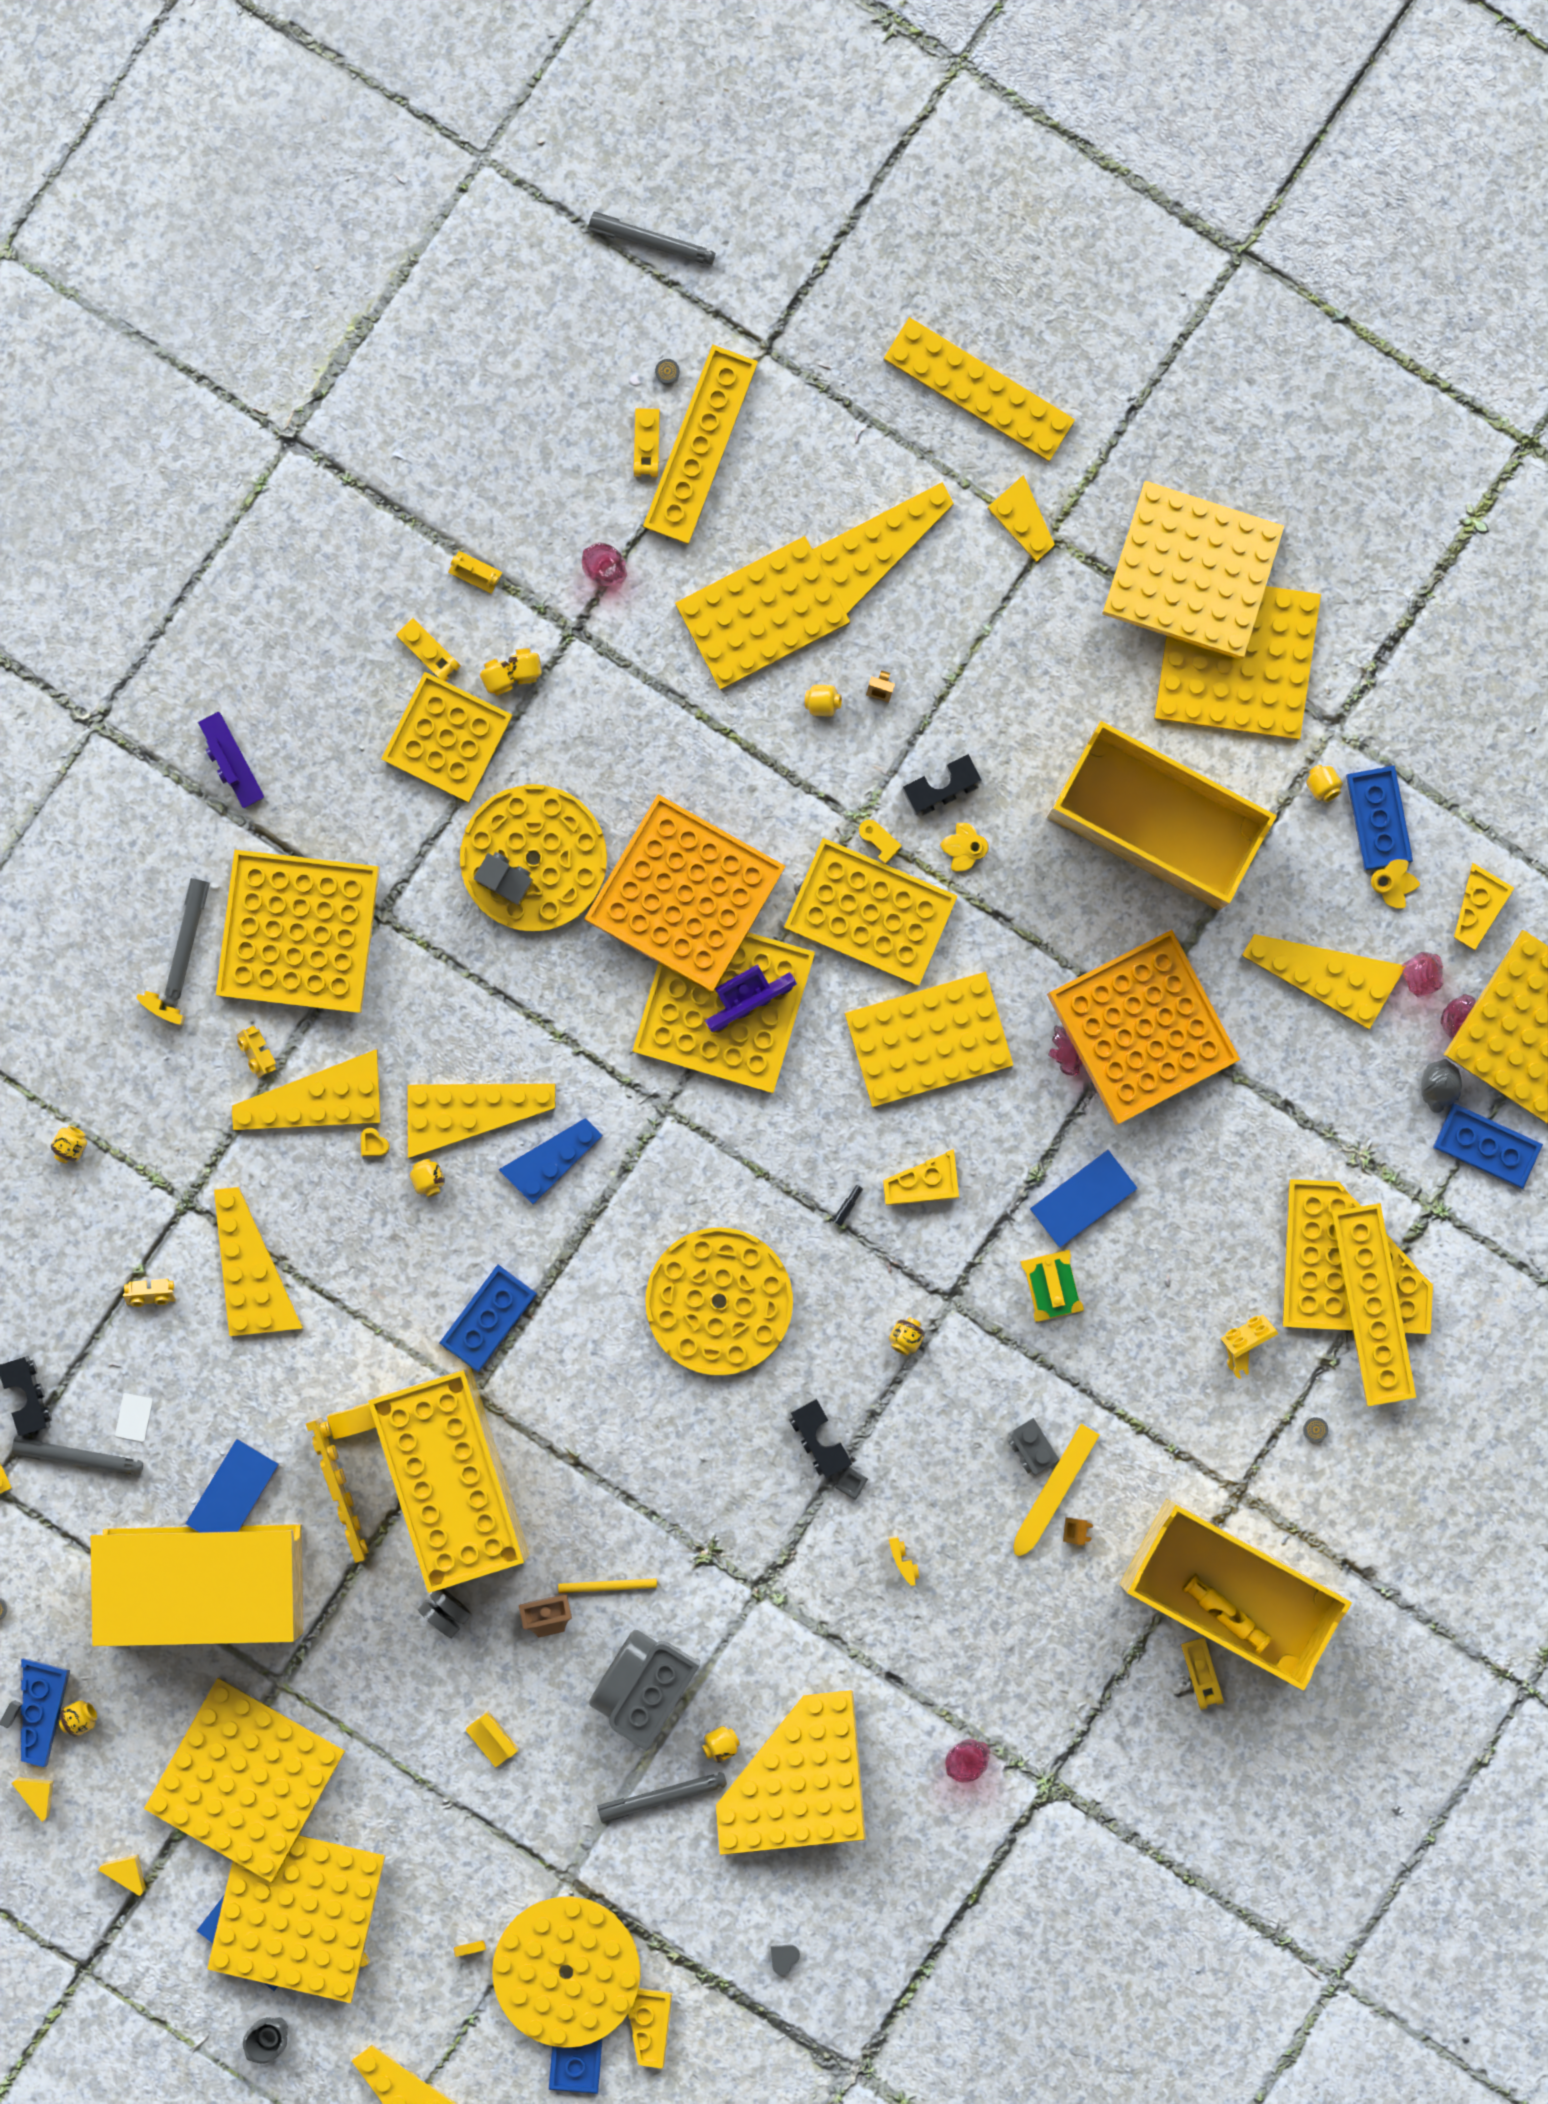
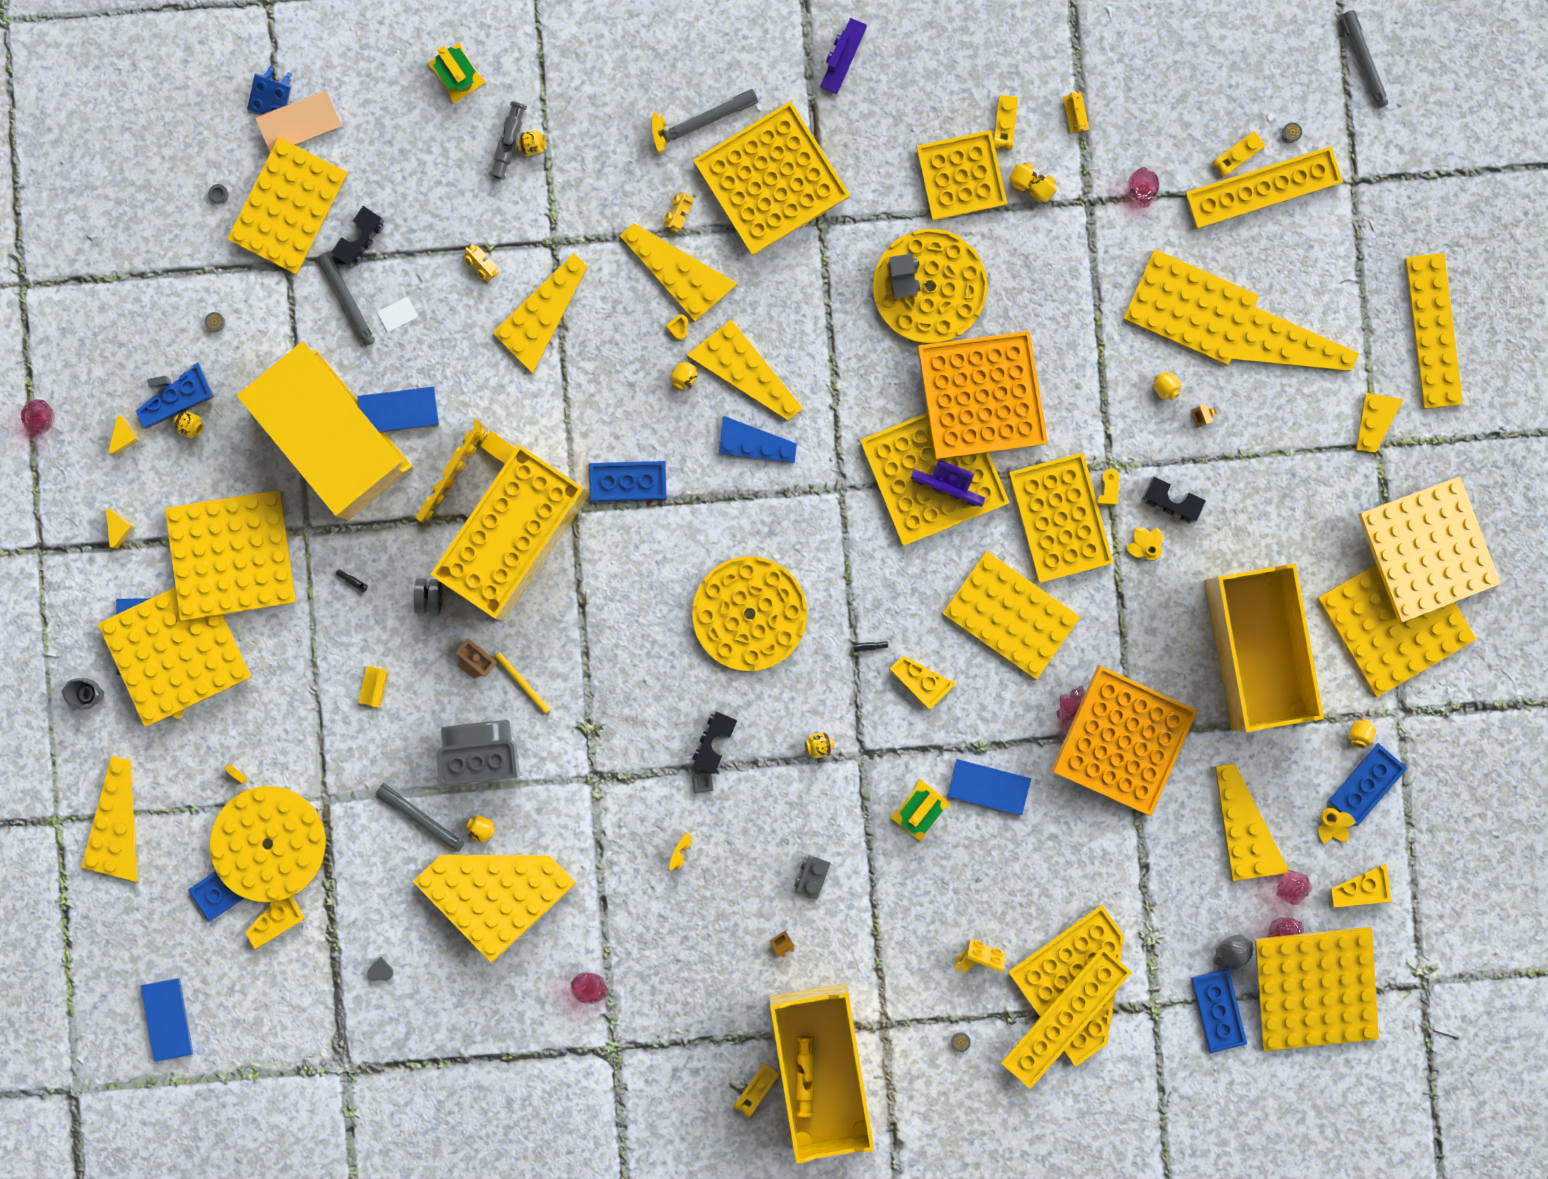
camera: 55 degrees right, 0 degrees up
(36, 1152) = (511, 127): none -> dark grey piece
(368, 1676) = (352, 581): none -> black piece
(1054, 1489) = (797, 910): yellow piece -> none

